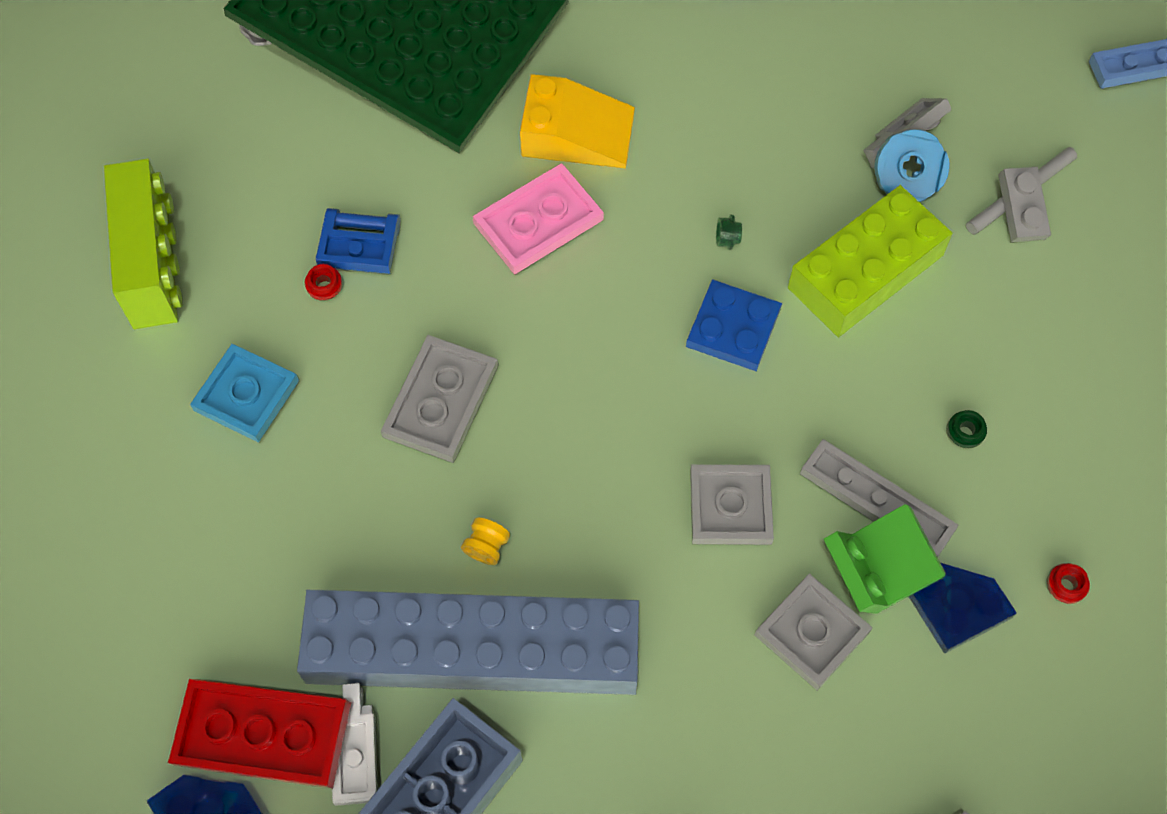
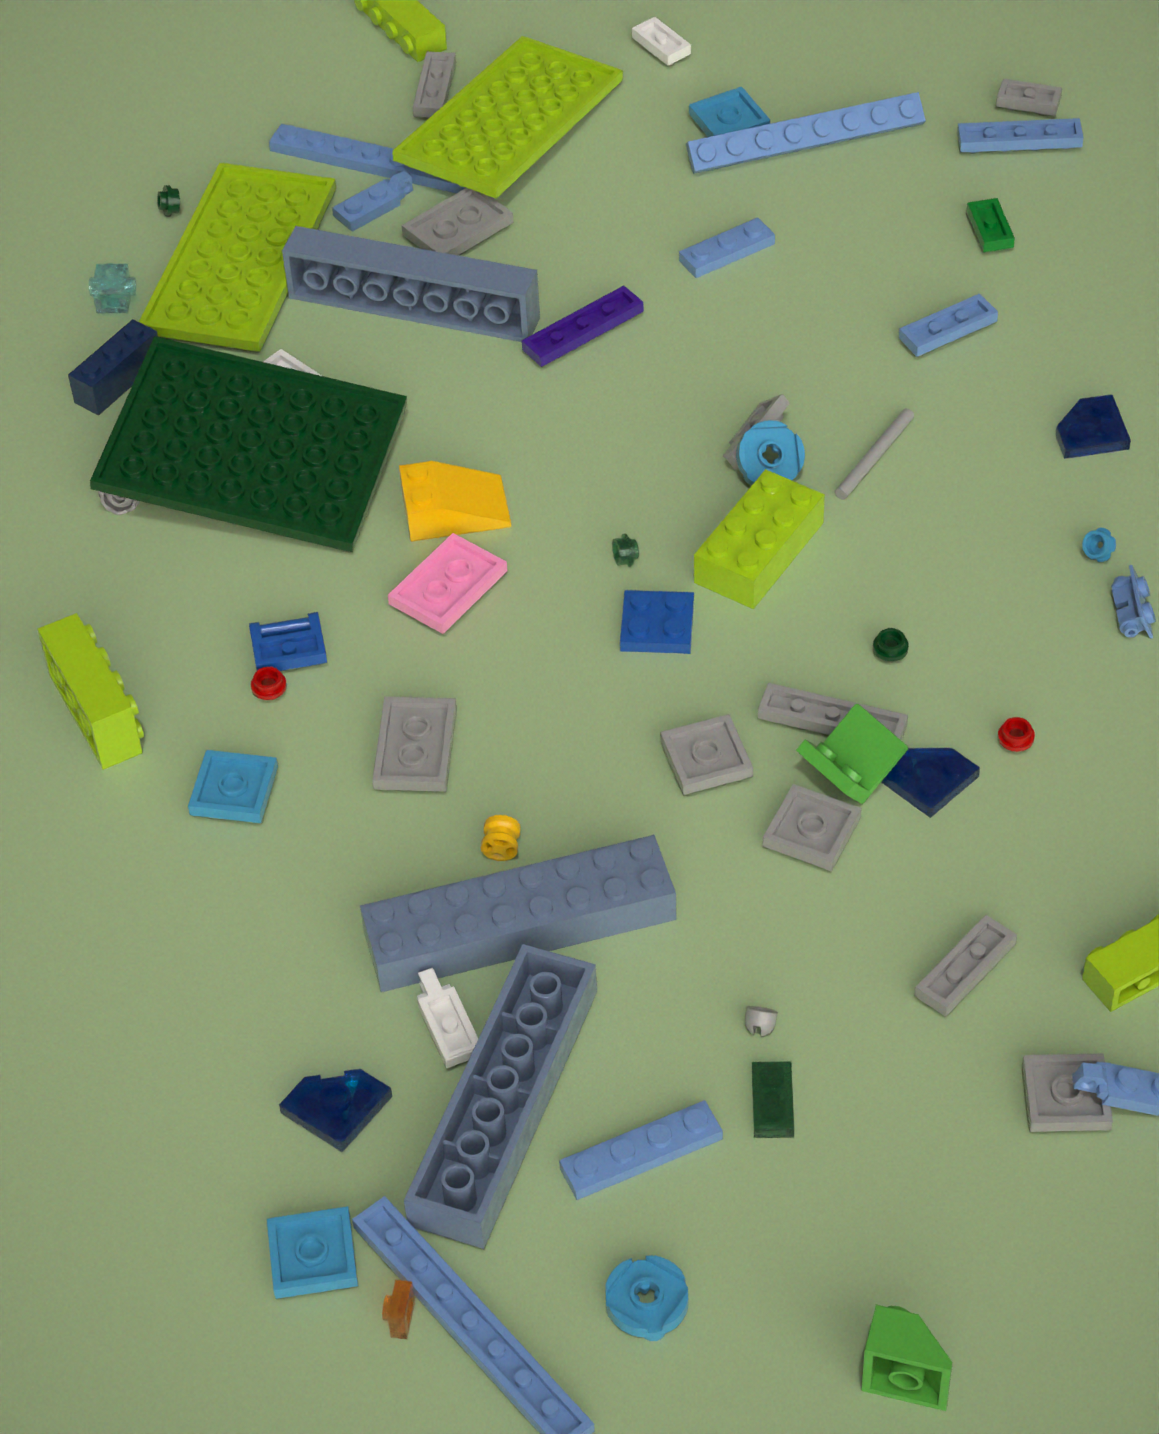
camera: 15 degrees left, 15 degrees down
(260, 733) = (360, 1026): red plate -> none
(1024, 204) = (880, 462): light grey plate -> none

